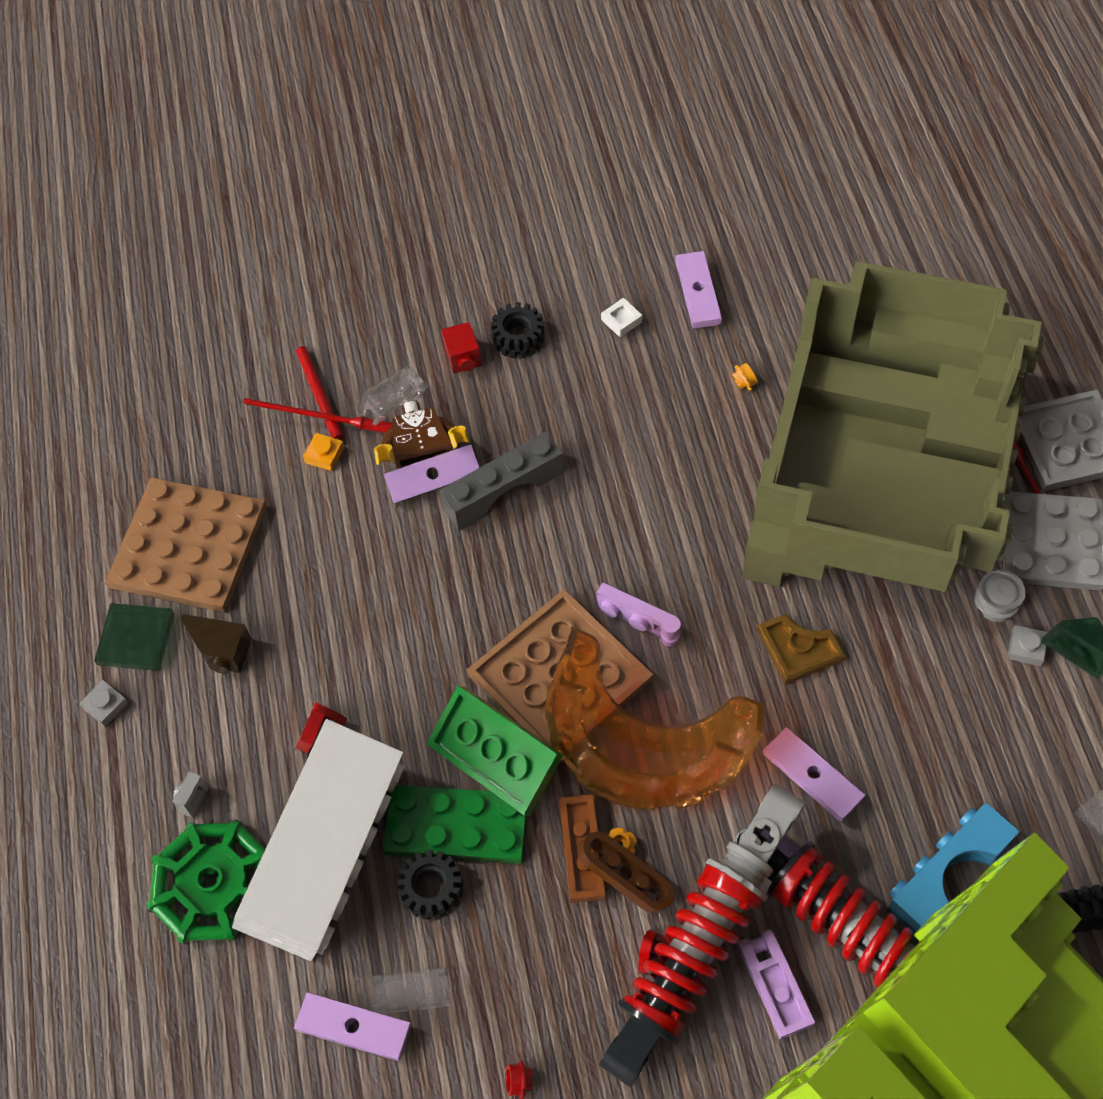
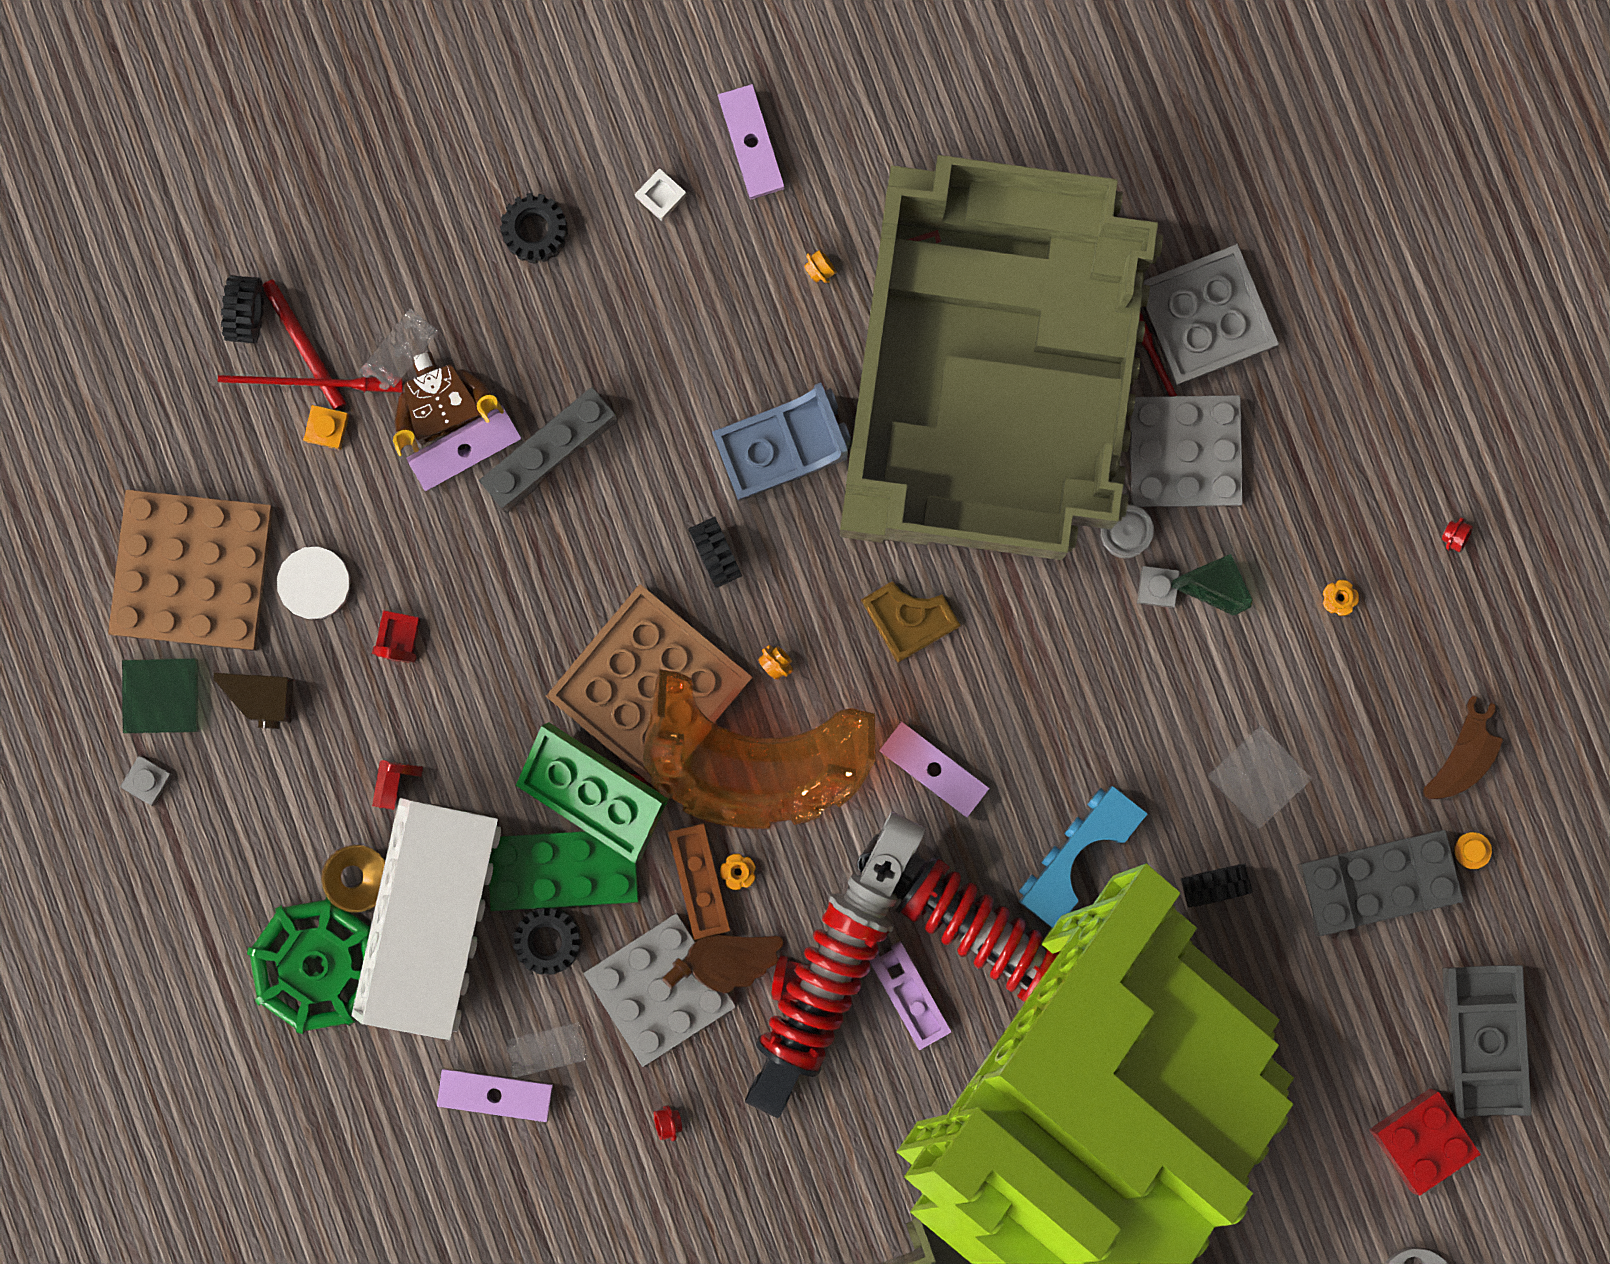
camera: 10 degrees left, 25 degrees up
(189, 794) = (270, 876): light grey plate -> none
(256, 784) = (366, 892): none -> pearl gold piece
(276, 356) = (242, 309): none -> black tyre
(286, 563) = (313, 583): none -> white tile
(347, 613) = (397, 637): none -> red tile
(461, 347) = (469, 265): red brick -> none
(530, 947) = (640, 1002): none -> light grey plate
(597, 924) = (726, 961): none -> reddish brown animal
(633, 567) = (715, 552): none -> black tyre
(639, 614) = (729, 605): lavender plate -> none
(640, 876) = (762, 906): reddish brown plate -> none
(676, 666) = (776, 662): none -> light orange plate
(704, 495) = (783, 443): none -> sand blue bracket

